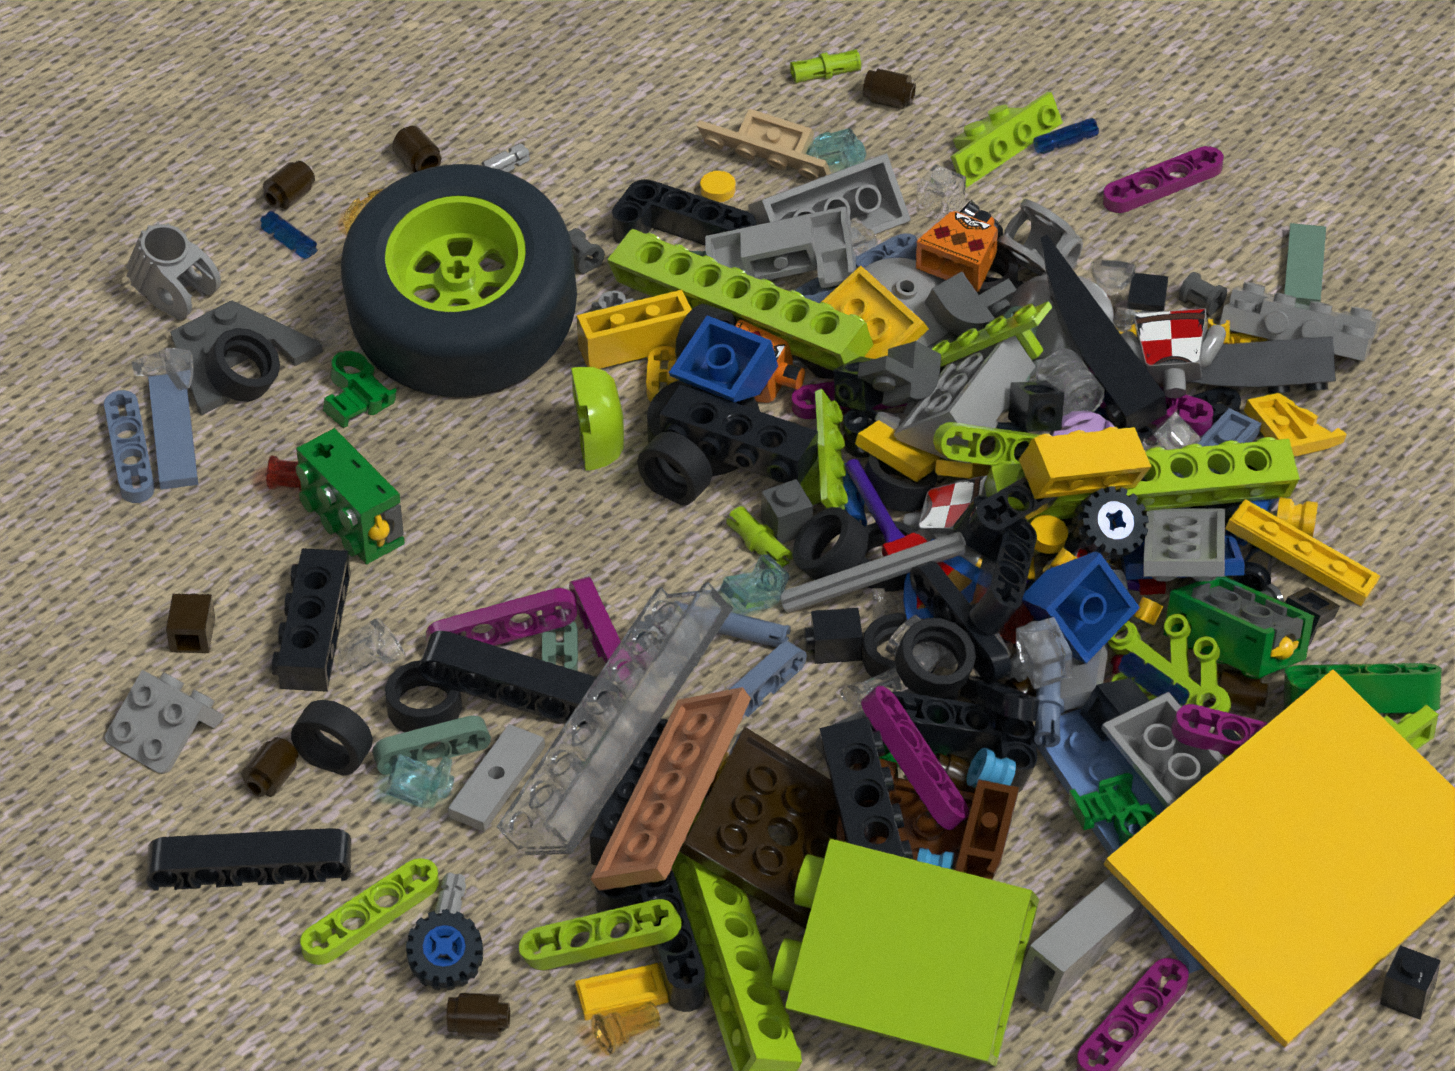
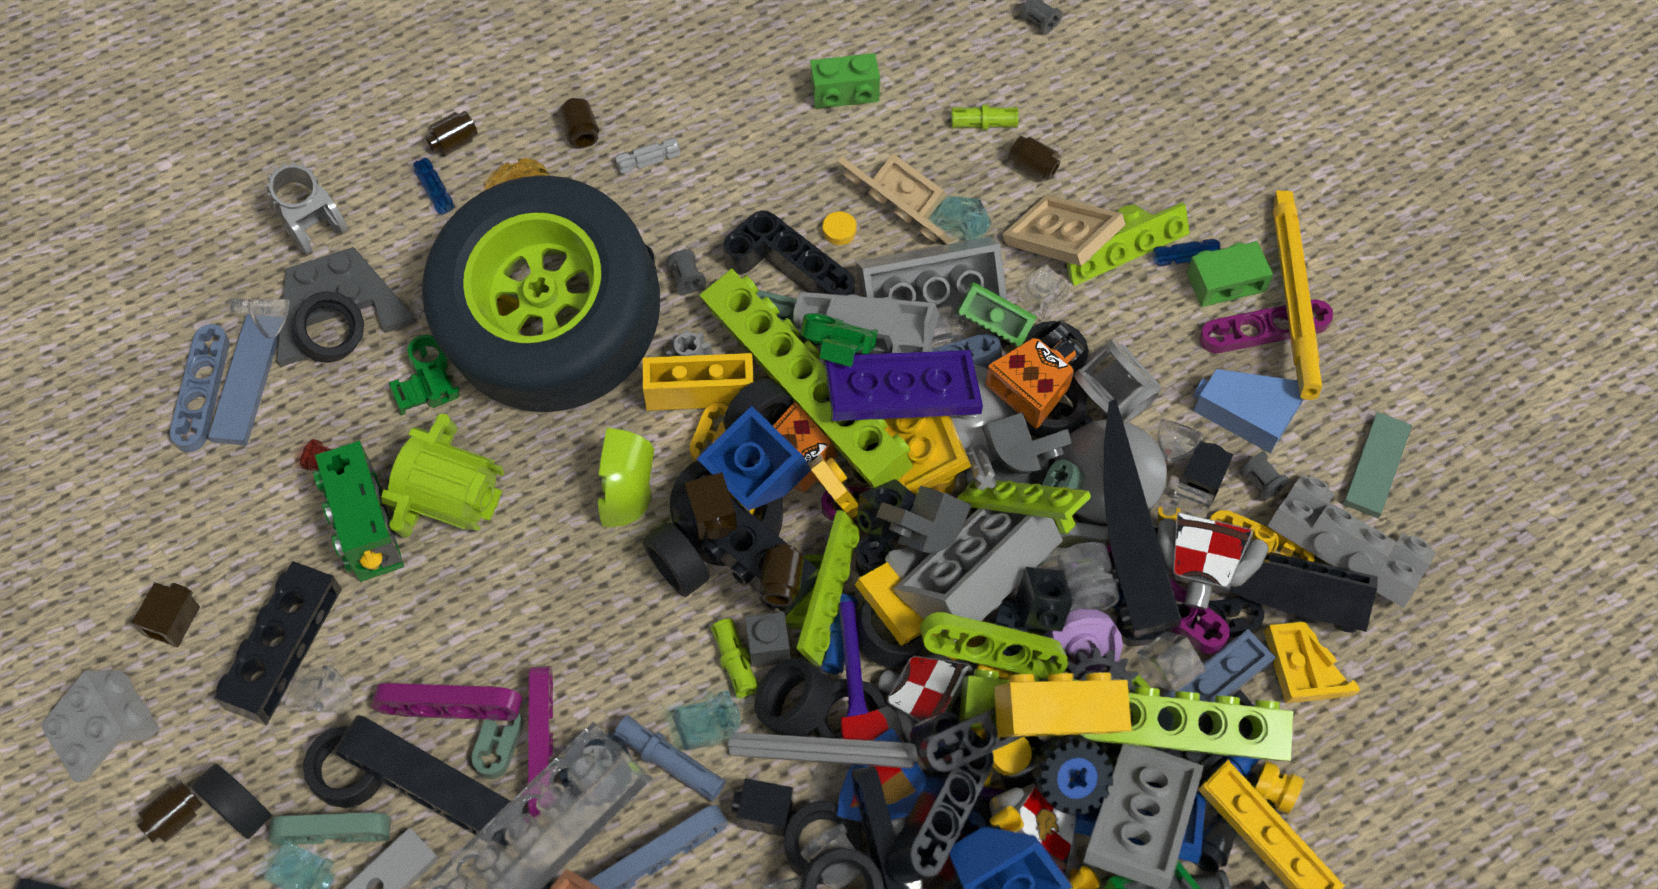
camera: 15 degrees right, 15 degrees up
(424, 454) = (440, 481): none -> lime container
(674, 60) = (845, 80): none -> bright green brick
(701, 398) = (711, 506): none -> dark brown brick
(762, 252) = (838, 339): none -> green piece
(789, 435) = (781, 575): none -> dark brown brick
(806, 366) = (832, 477): none -> yellow wing
(840, 275) = (904, 386): none -> dark purple tile
(899, 213) = (995, 314): none -> bright green brick
(939, 331) = (981, 467): none -> light grey axle
(942, 135) = (1064, 229): none -> tan plate
(1113, 142) = (1229, 273): none -> bright green brick
(1170, 240) = (1249, 405): none -> medium blue slope
(1183, 142) = (1297, 295): none -> yellow piece

